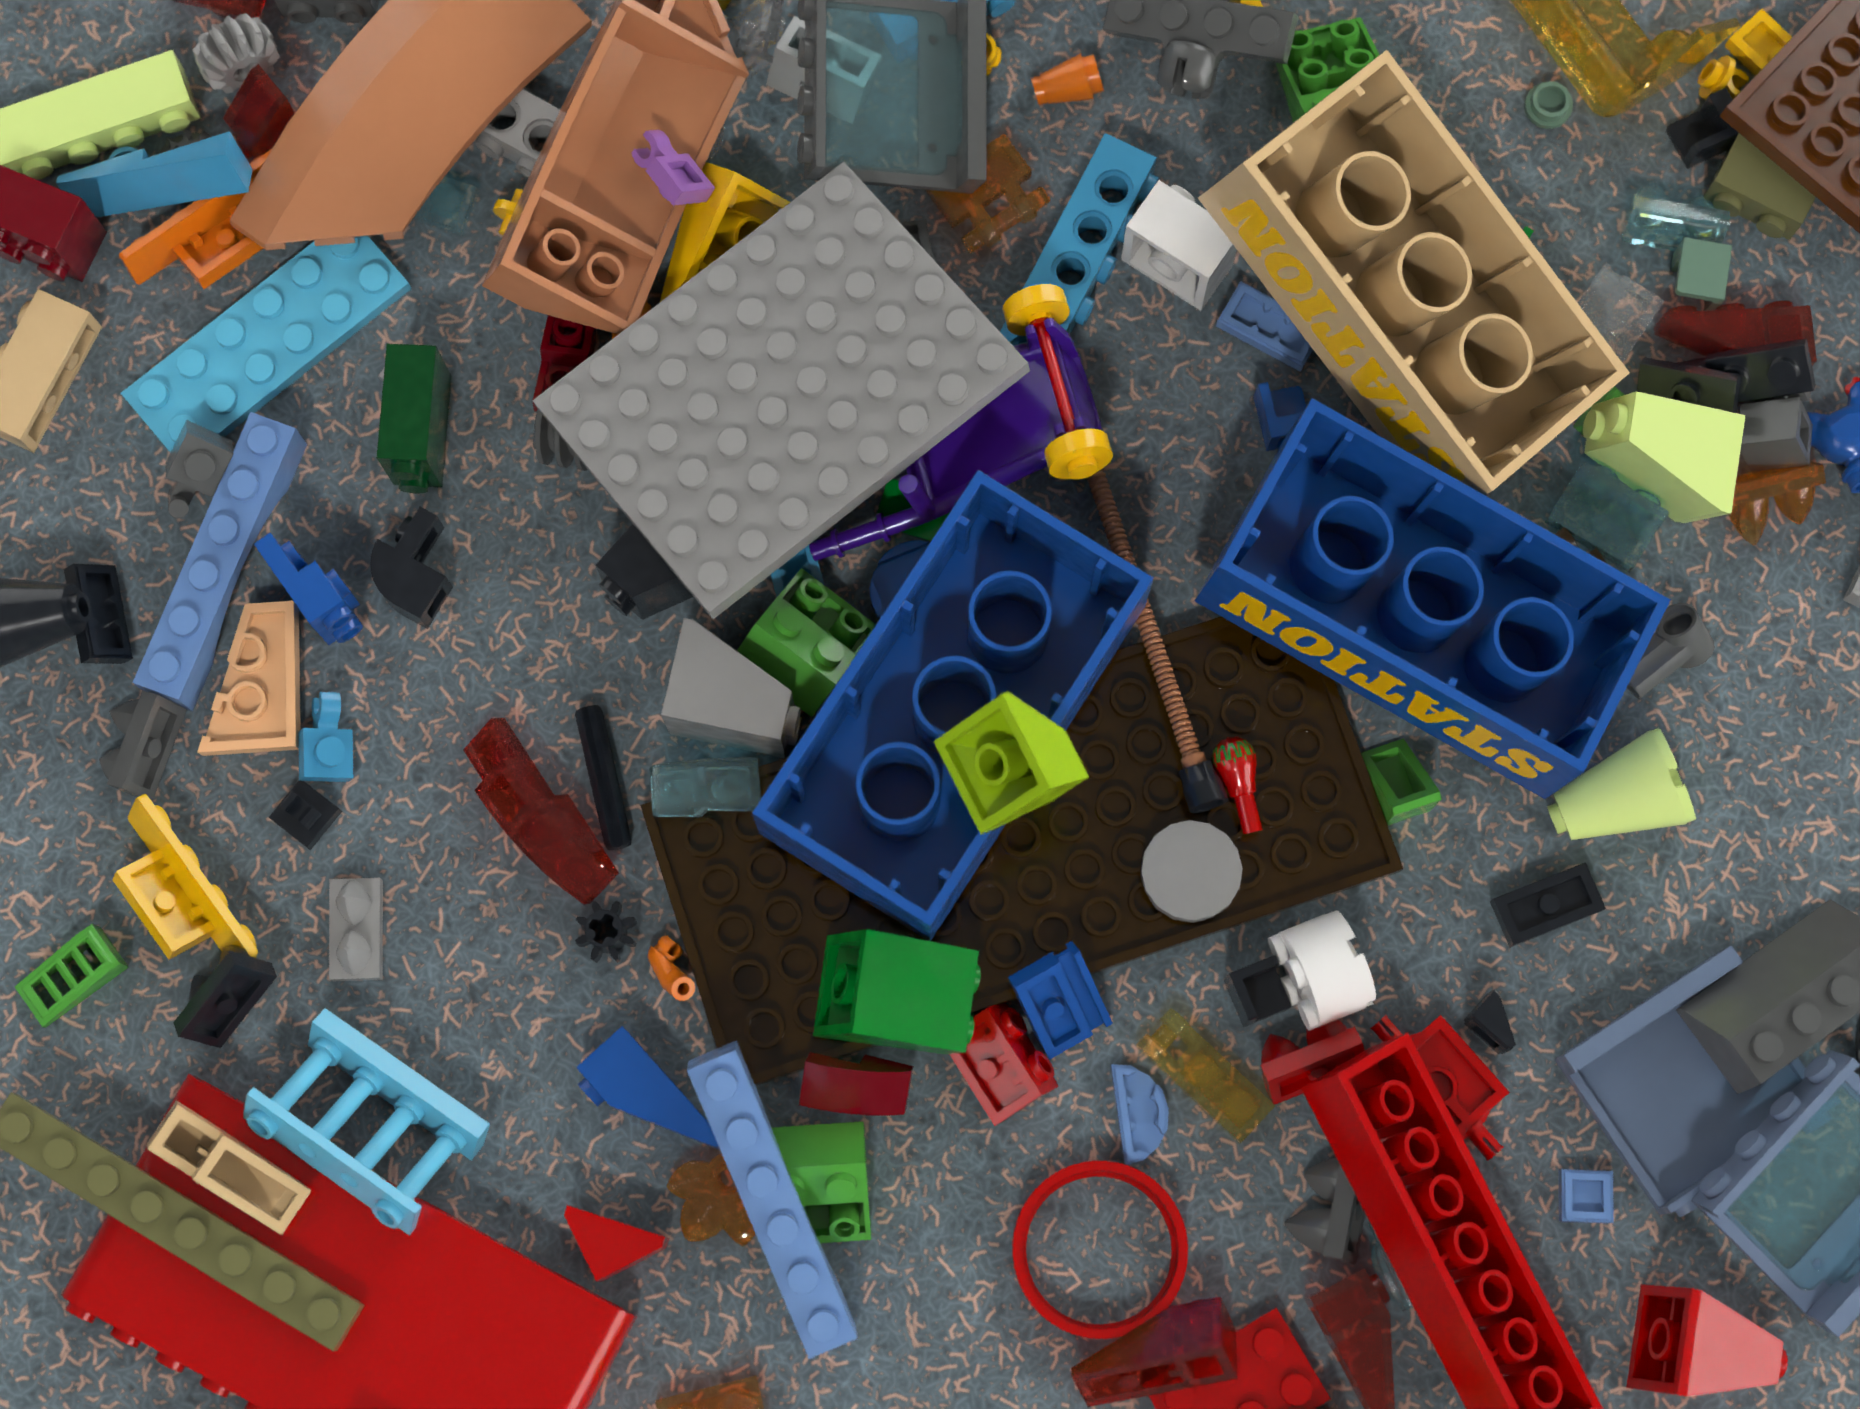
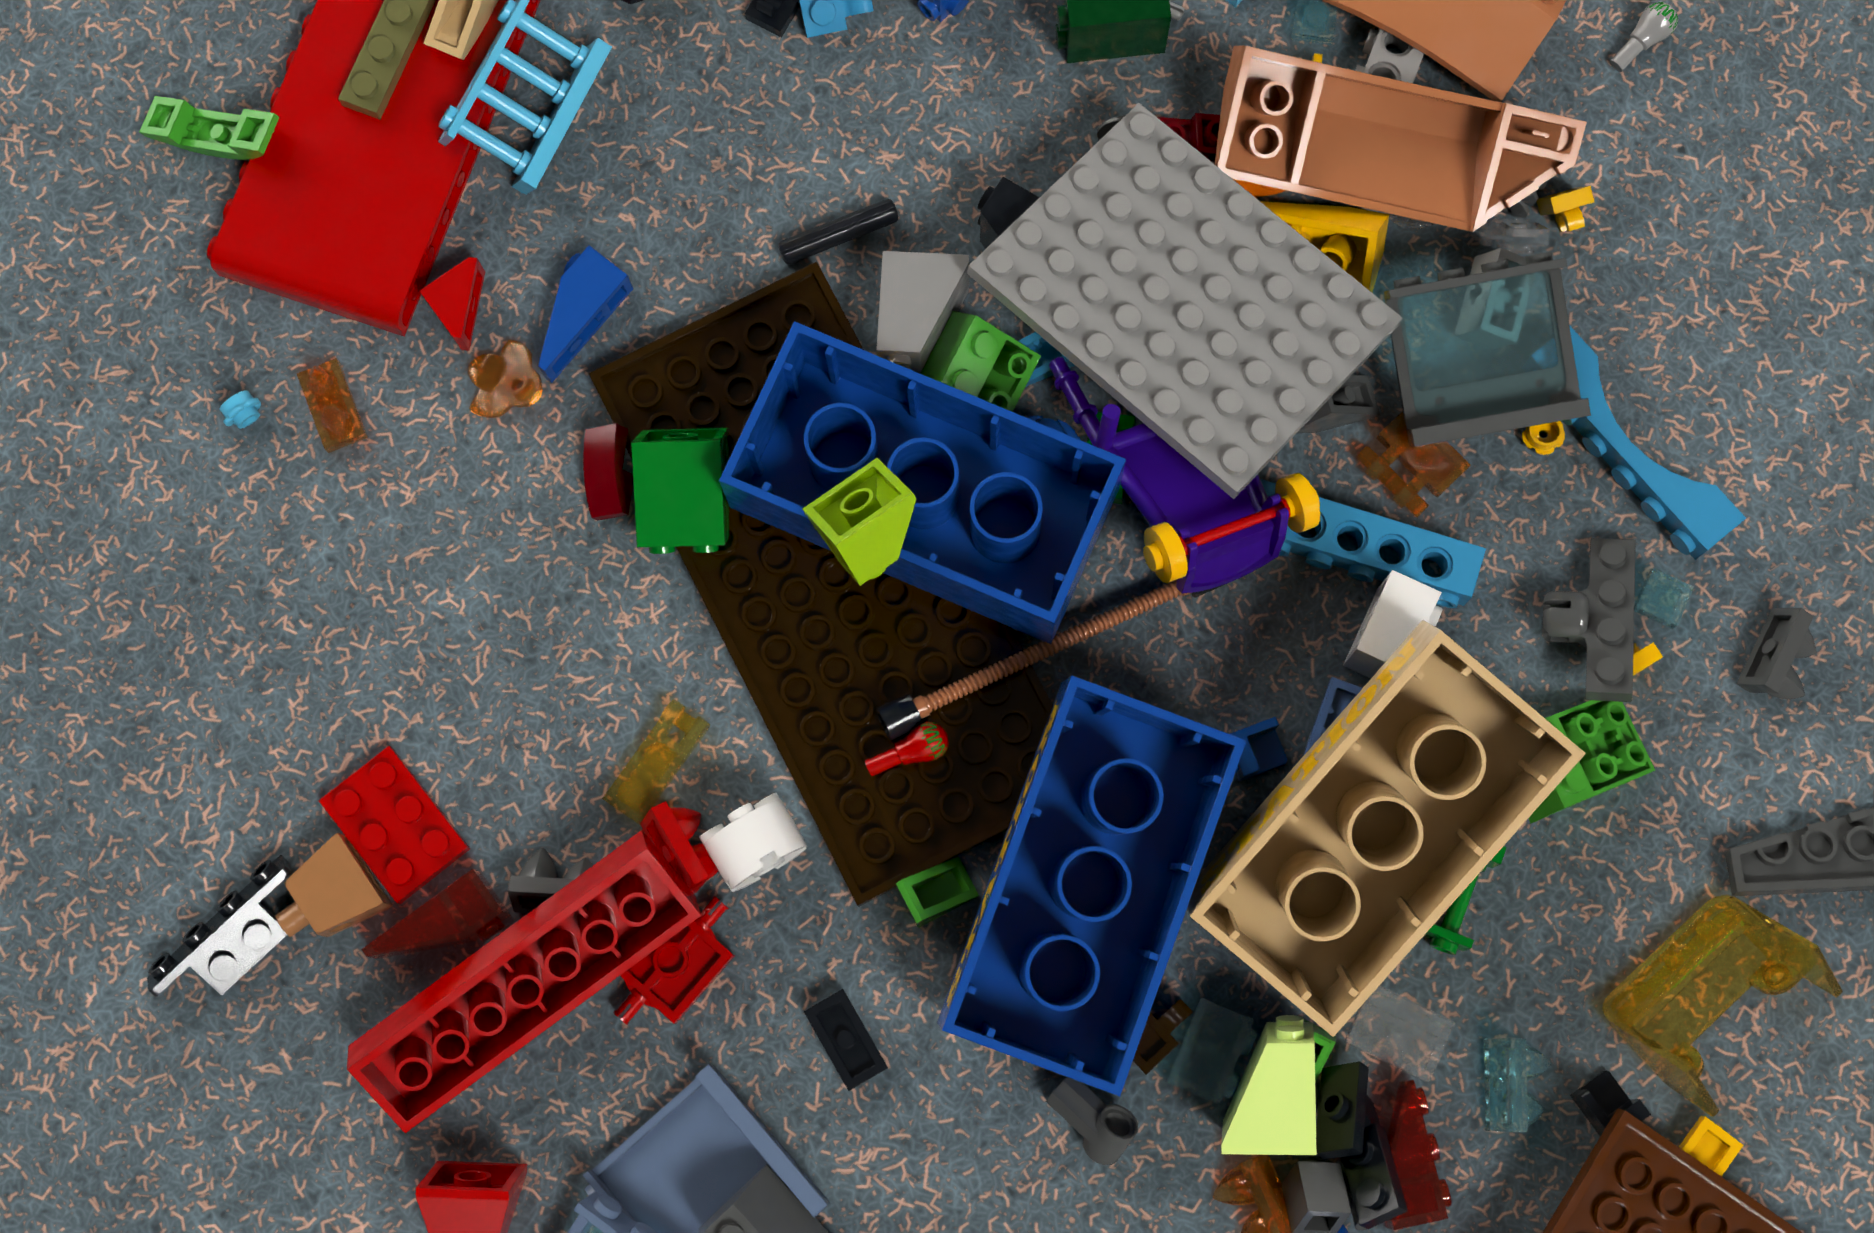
camera: 85 degrees right, 0 degrees up
(355, 929) = (684, 64): light grey tile -> none
(400, 572) = (981, 40): black brick -> none
(536, 820) = (786, 185): clear red slope -> none
(602, 918) = (715, 261): black gear -> none
(669, 975) = (684, 310): orange arm -> none
(674, 174) = (1365, 182): medium lavender plate -> none
(704, 785) = (836, 302): clear light blue slope -> none
(771, 1199) = (553, 370): medium blue arch -> none
(829, 1177) = (523, 453): bright green slope -> none
(1004, 1064) = (644, 590): red bracket -> none
(1060, 1000) = (698, 625): blue plate -> none
(1069, 81) = (1534, 517): orange cone -> none
(1140, 1112) = (619, 711): medium blue tile -> none
(1155, 1193) = (446, 654): red piece -> none
(1169, 1352) = (415, 757): clear red slope -> none
(1191, 871) = (825, 719): light grey tile -> none
(1257, 991) = (729, 791): black panel -> none
(1491, 1023) = (731, 1000): black slope -> none
(1548, 105) = (1604, 954): sand green plate -> none
(1586, 1196) = (595, 1105): medium blue tile -> none
(1625, 793) = (955, 1096): yellowish green cone -> none
(1702, 270) = (1463, 1113): sand green panel -> none
(1720, 75) = (1664, 1111): yellow plate -> none
(1759, 191) = (1557, 1157): olive brick -> none

